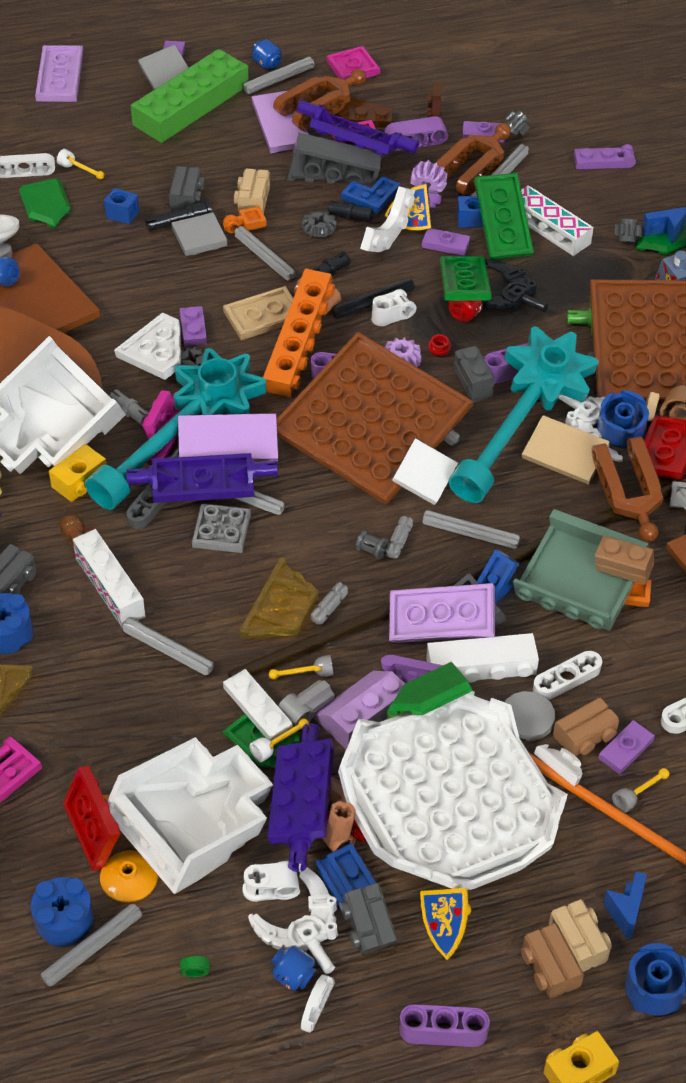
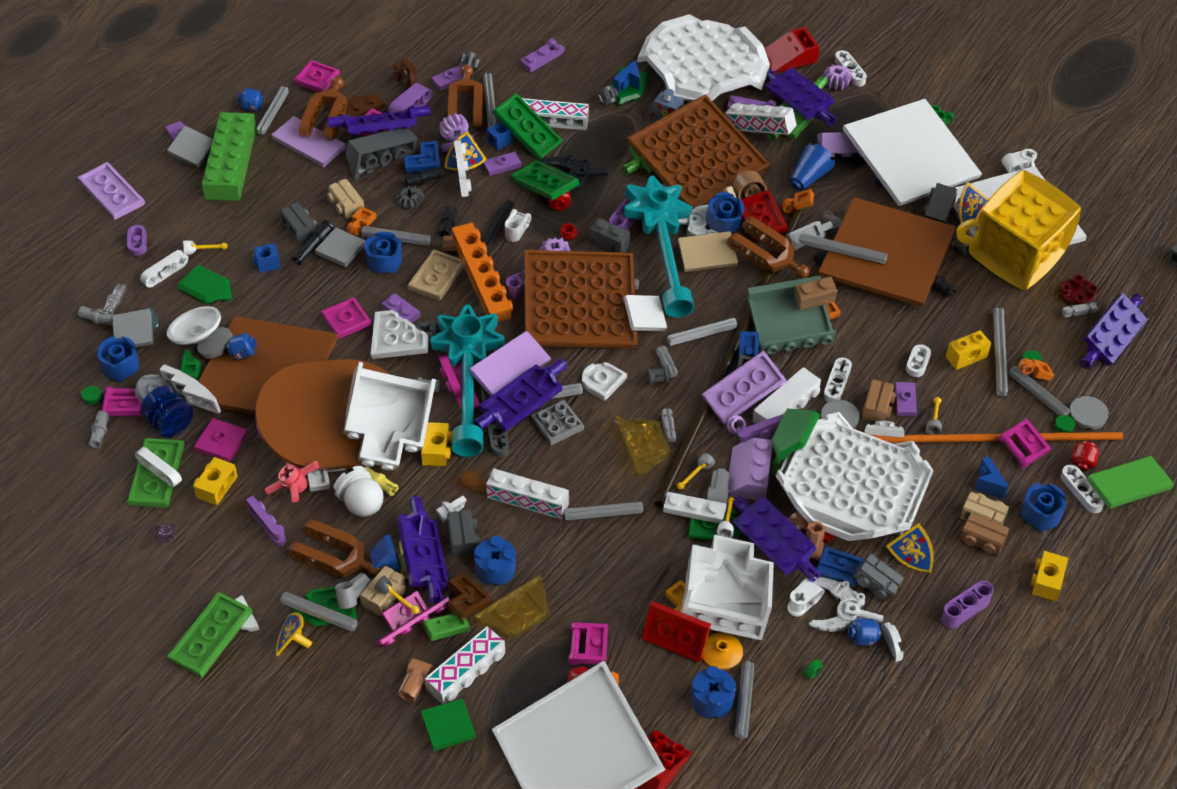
camera: 40 degrees left, 0 degrees up
(29, 127) = (137, 240): none -> medium lavender plate
(29, 544) = (447, 507): none -> white piece
(131, 303) = (346, 317): none -> dark pink plate
(229, 260) = (383, 252): none -> blue brick
(313, 514) = (602, 379): none -> white tile
(399, 640) = (740, 424): none -> lavender plate

